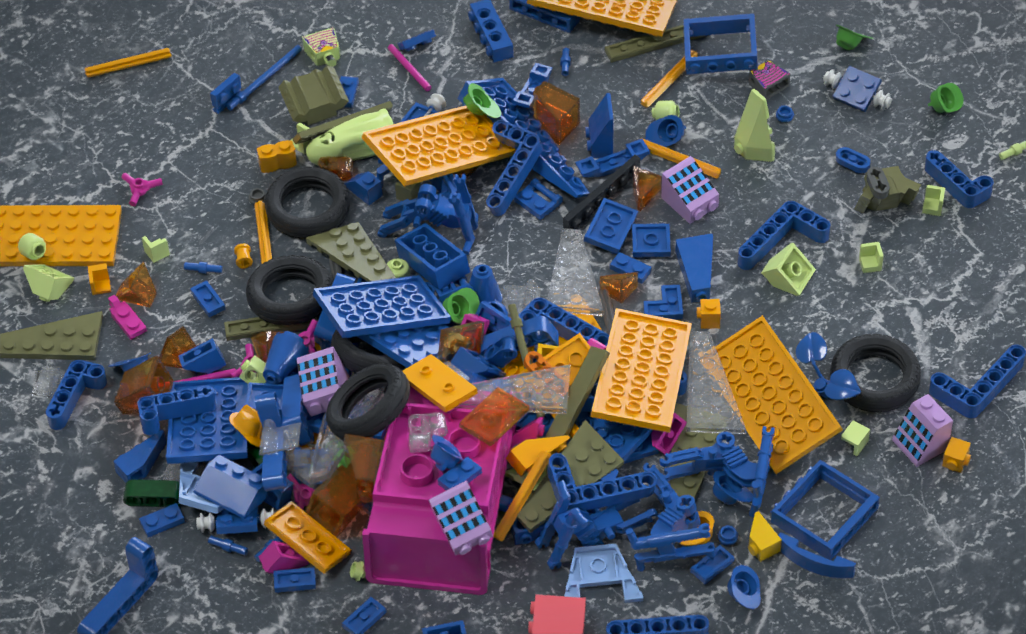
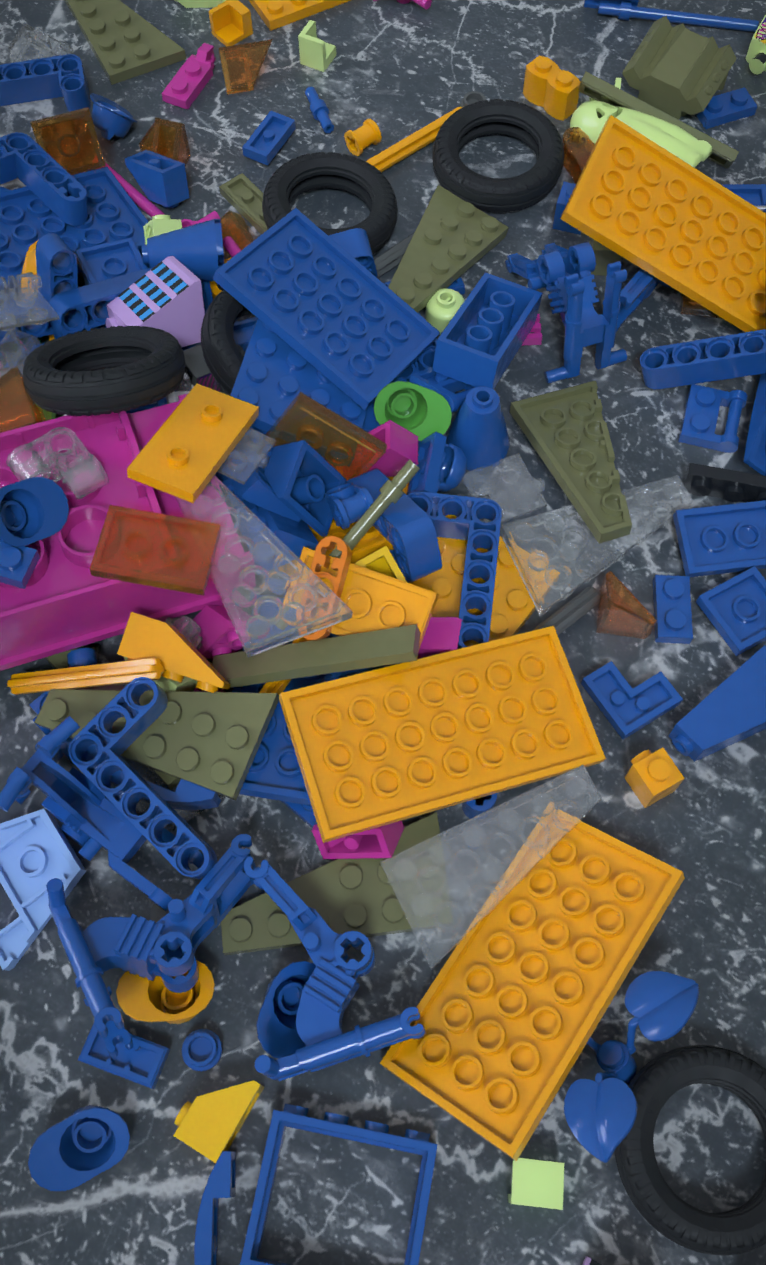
camera: 60 degrees right, 15 degrees up
(528, 257) = (578, 451): none -> olive wing

